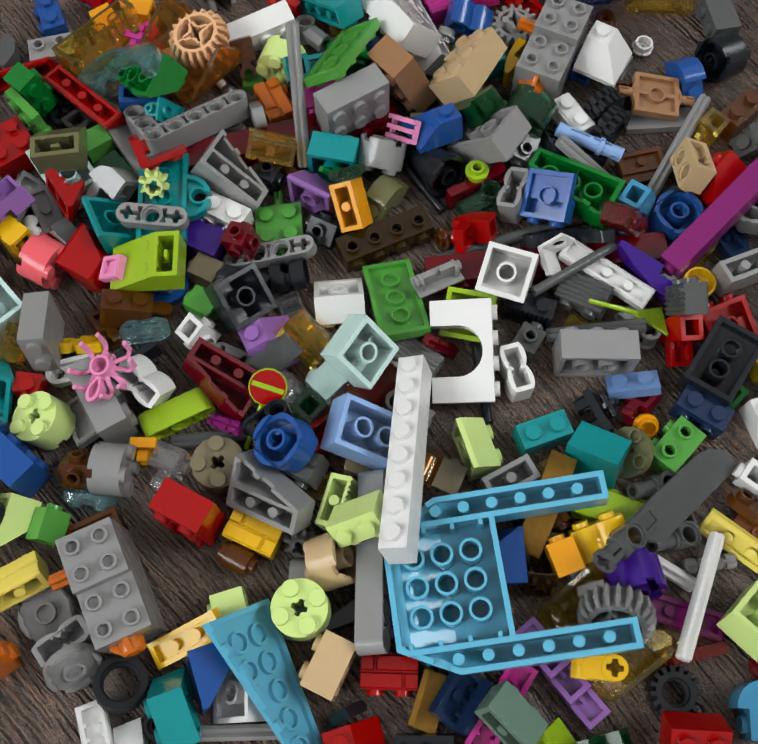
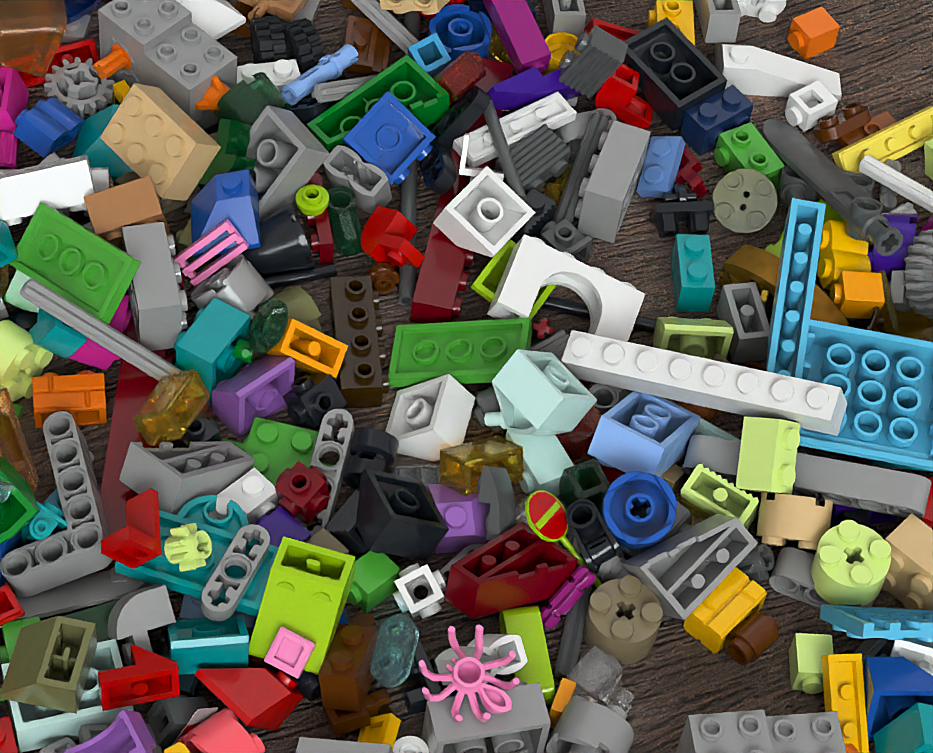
camera: 80 degrees left, 15 degrees down
(187, 513) = (691, 654): red brick -> none
(257, 114) = (109, 406): light grey beam -> none
(437, 278) = (454, 292): light grey hinge -> none
(517, 375) = (618, 261): white brick -> none
(598, 450) = (739, 221): teal slope -> none
(647, 423) = (712, 173): light orange plate -> none
(653, 316) = (584, 111): lime piece -> none

